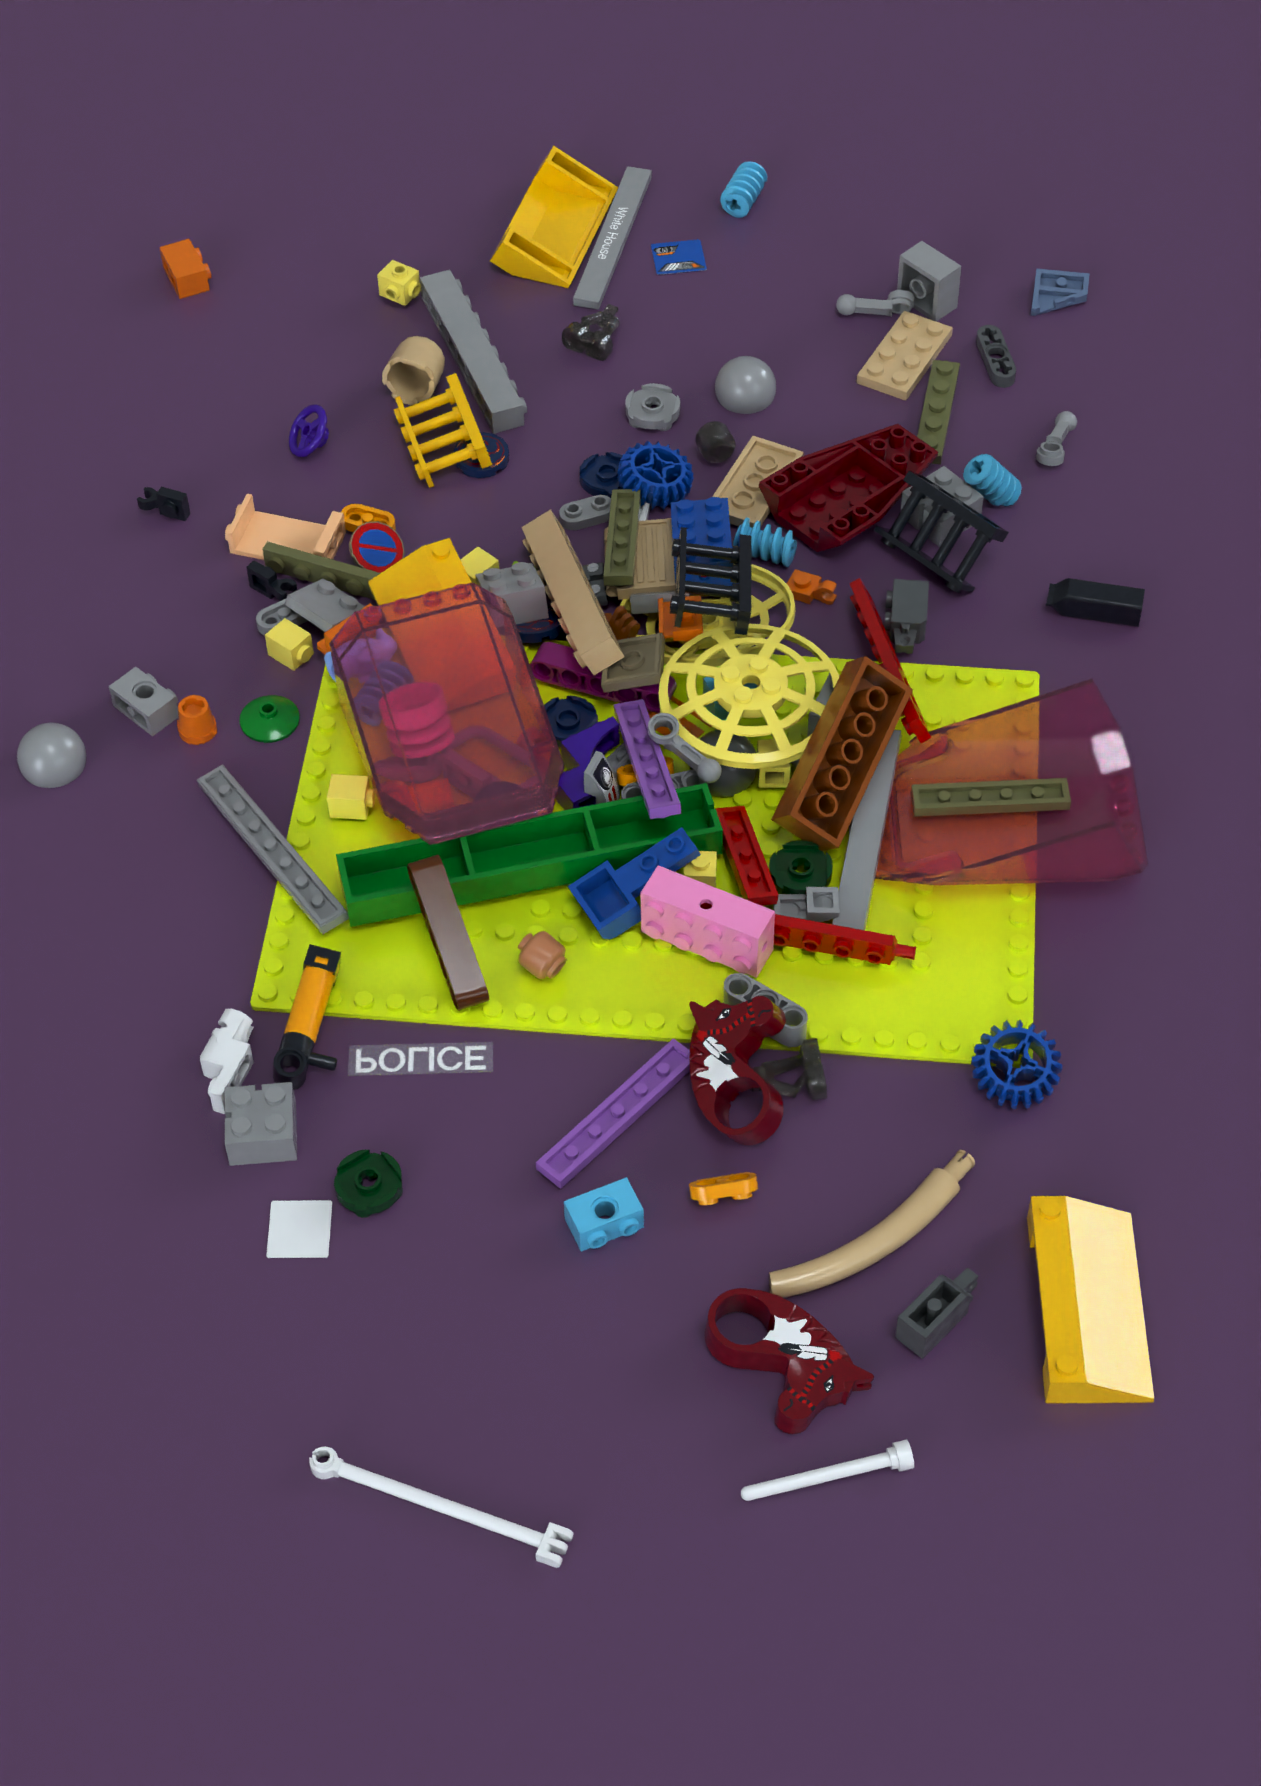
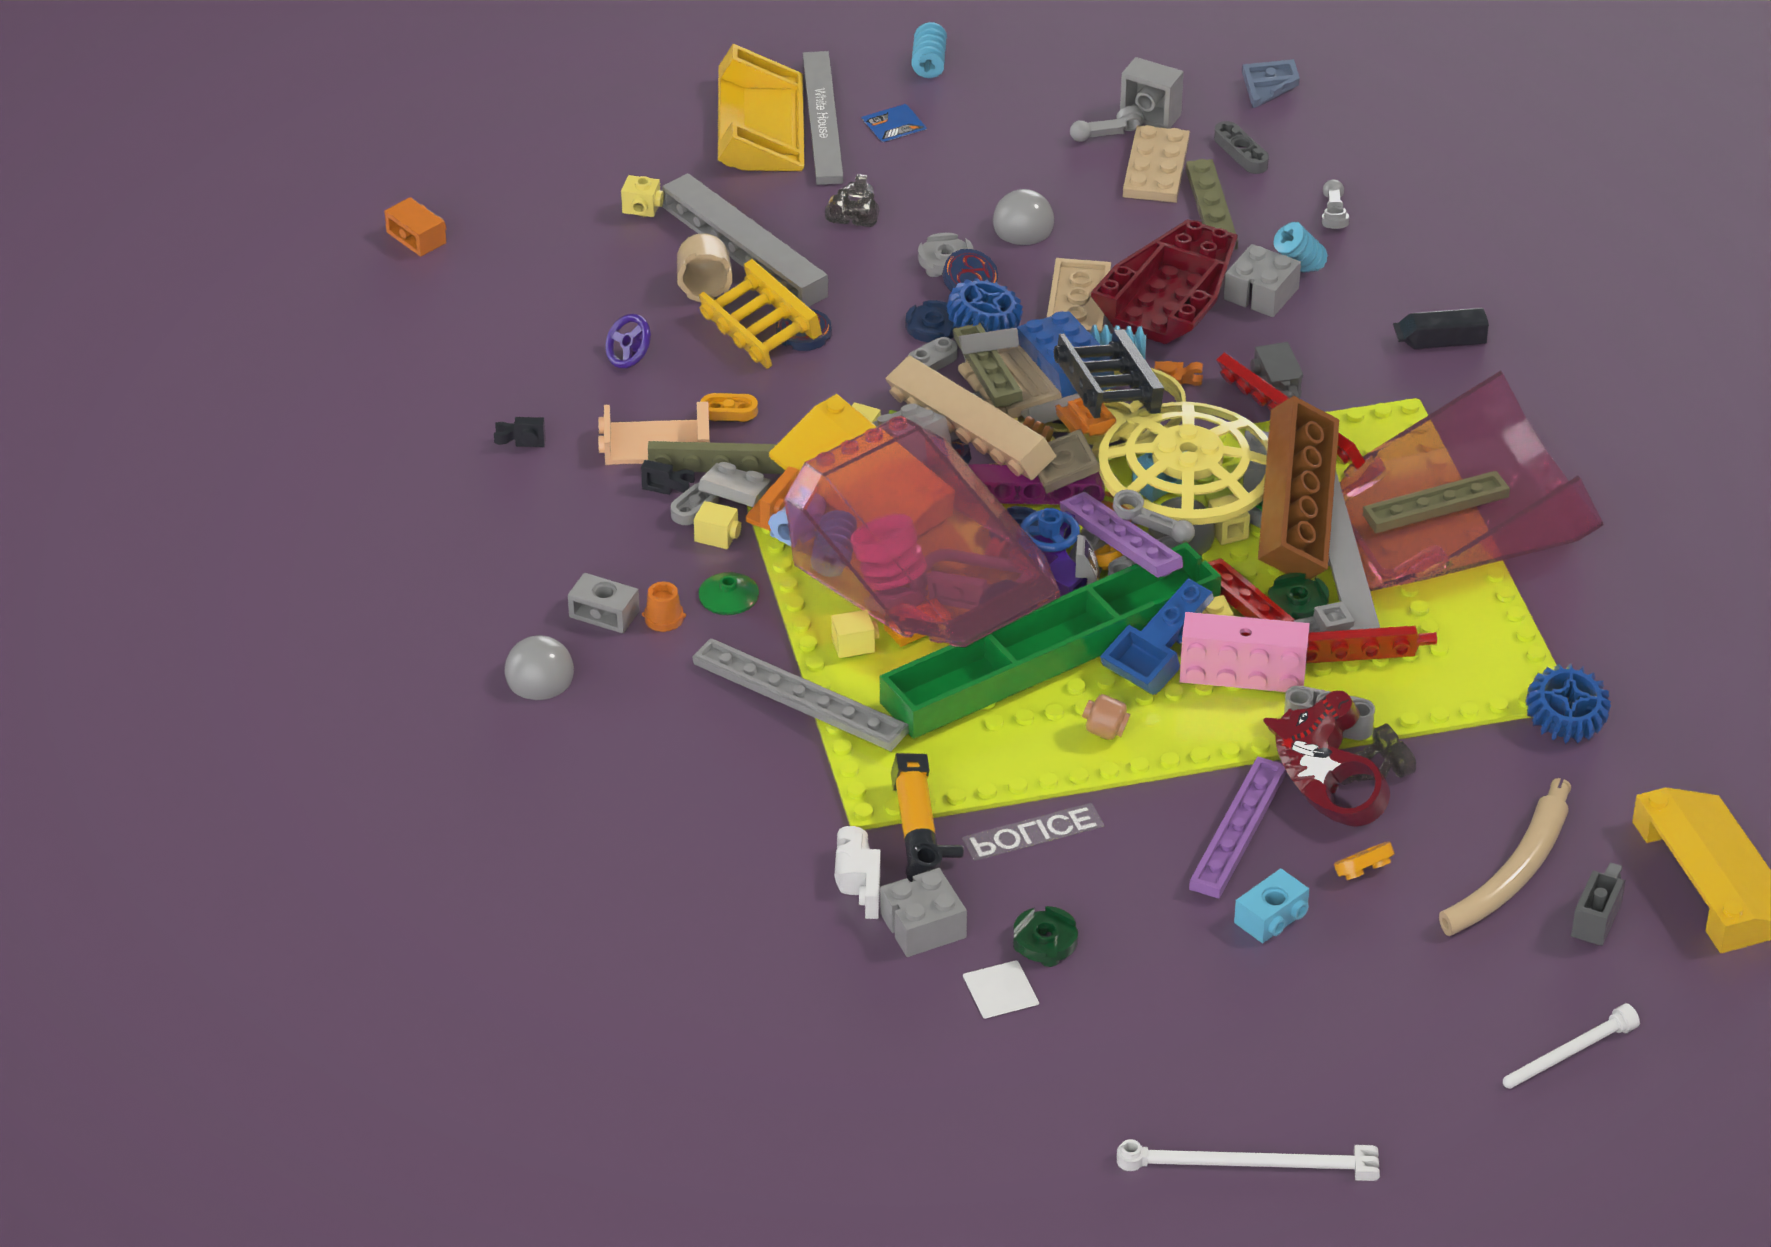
camera: 20 degrees left, 10 degrees down
(376, 546) = (752, 424): piece -> none
(448, 932) = (1017, 714): beam -> none
(583, 727) = (1049, 526): none -> blue piece
(632, 512) = (989, 341): none -> light grey slope
(664, 426) = (968, 265): none -> dark blue tile
(715, 442) = (1024, 270): clear smoke head -> none
(797, 1346) = (1489, 961): dark red animal -> none
(964, 517) = (1298, 278): black fence -> none

